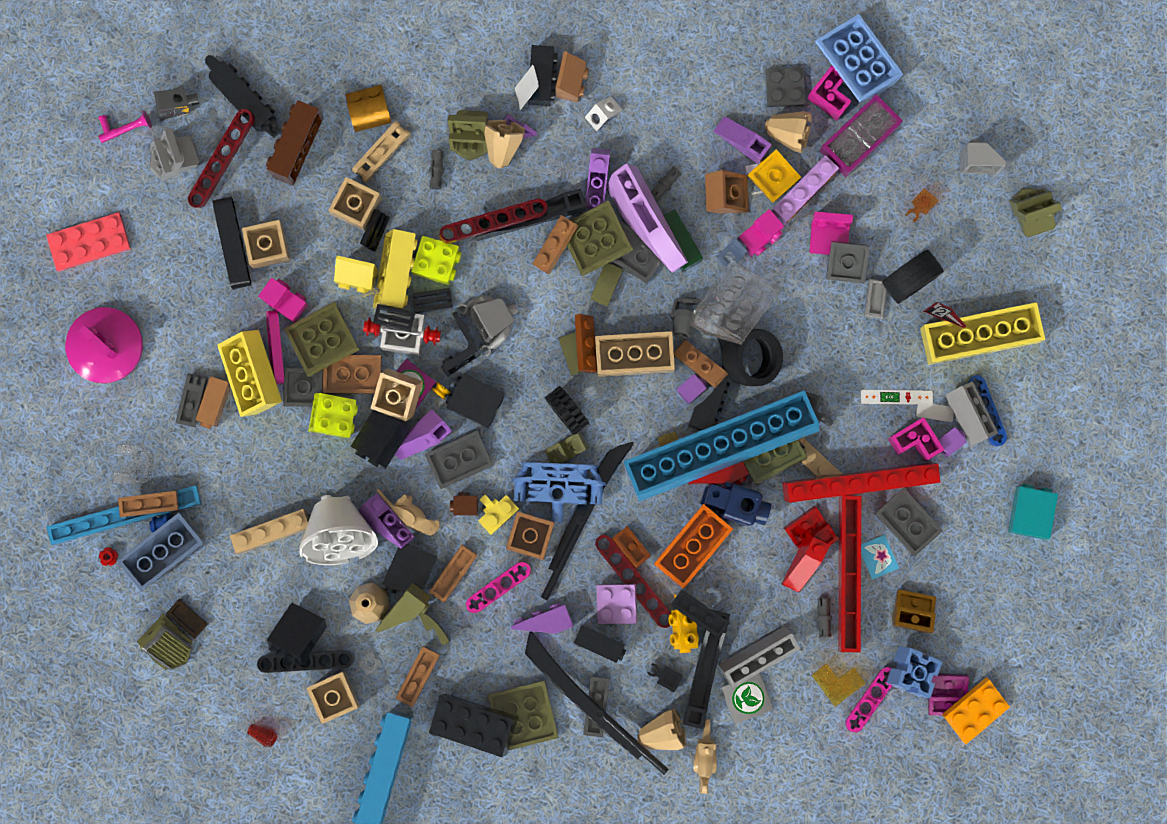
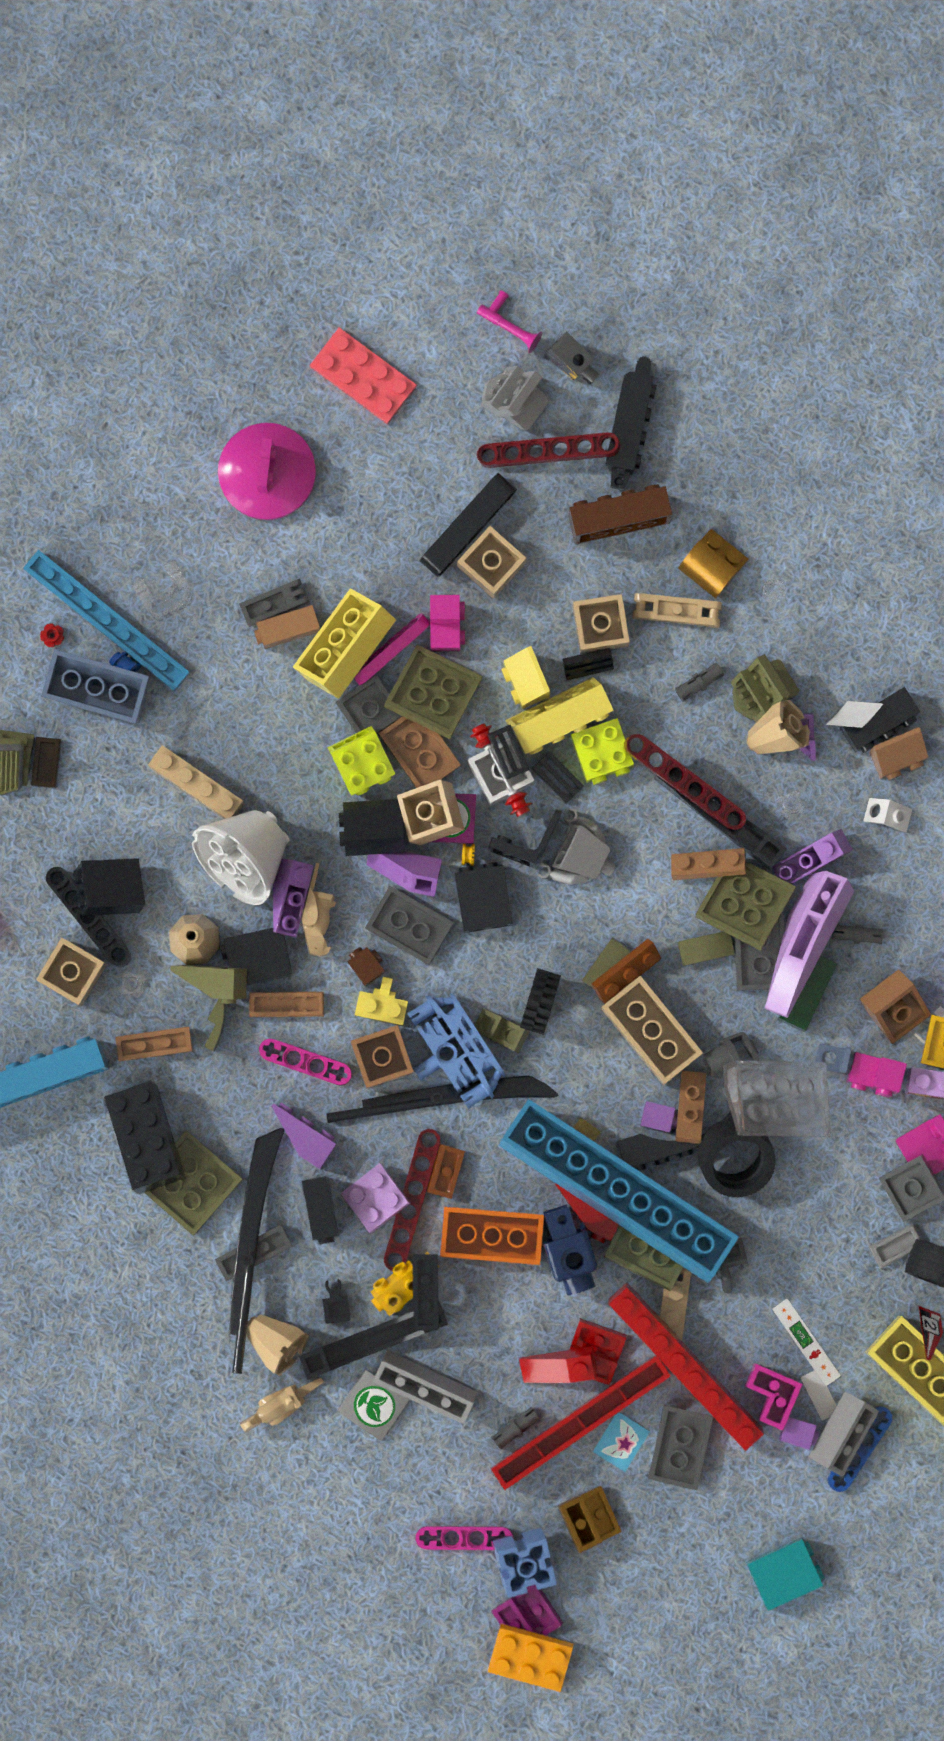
camera: 55 degrees right, 0 degrees up
(148, 504) = (135, 638): medium nougat plate -> none
(375, 290) = (523, 711): clear hinge -> none
(837, 688) = (449, 1491): clear yellow plate -> none

